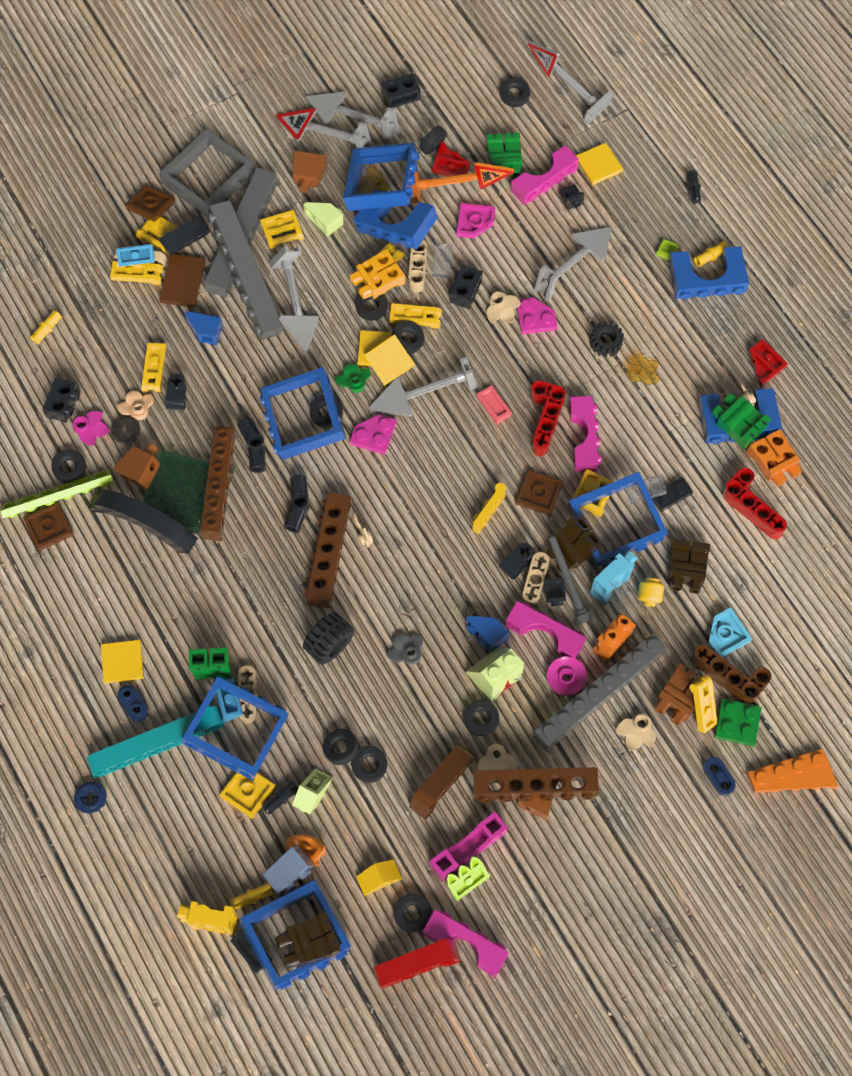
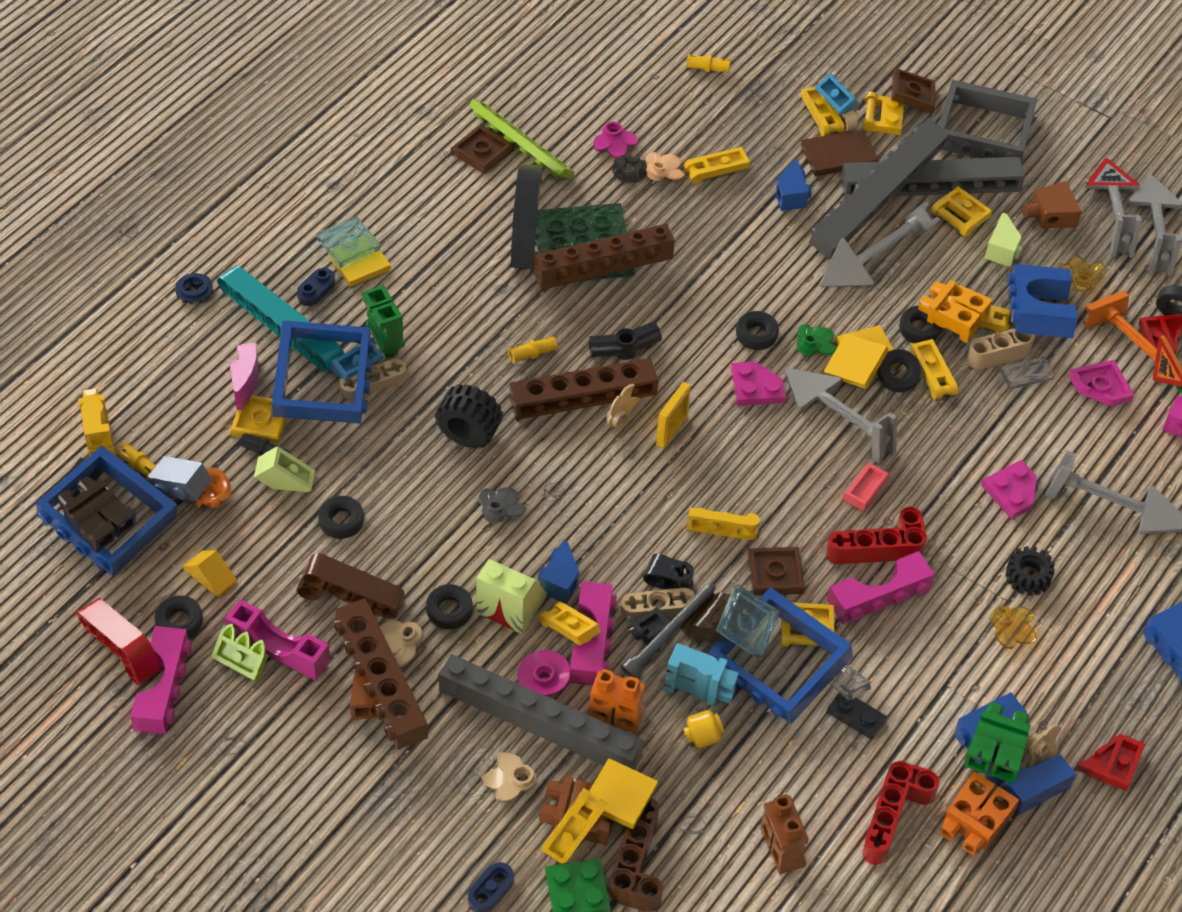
camera: 65 degrees right, 15 degrees down
(57, 399) = (630, 104): black brick -> none
(66, 455) = (559, 129): black tyre -> none
(103, 662) = (348, 241): none -> clear light blue tile
(139, 465) = (589, 188): dark orange torso -> none
(176, 395) = (694, 193): black piece -> none
(184, 235) = (885, 125): black beam -> none
(204, 787) = (244, 373): none -> slope
(256, 453) = (675, 279): black piece -> none
(274, 570) = (532, 349): none -> yellow pin
(313, 442) = (732, 339): blue window -> none
(330, 742) = (348, 471): black tyre -> none
(375, 155) = (1046, 250): blue window -> none
(387, 498) = (673, 415): none -> yellow tile
(468, 287) = (1004, 403): black brick -> none
(504, 309) = (1002, 449): tan plate -> none
(537, 641) = (570, 623): none -> yellow plate
(596, 526) = (748, 621): none -> clear light blue tile
(684, 571) = (764, 760): dark brown hips -> none
(689, 663) = (623, 791): none -> yellow tile
(727, 633) = (693, 836): medium azure plate -> none
(754, 576) = (784, 834): none -> dark orange hips

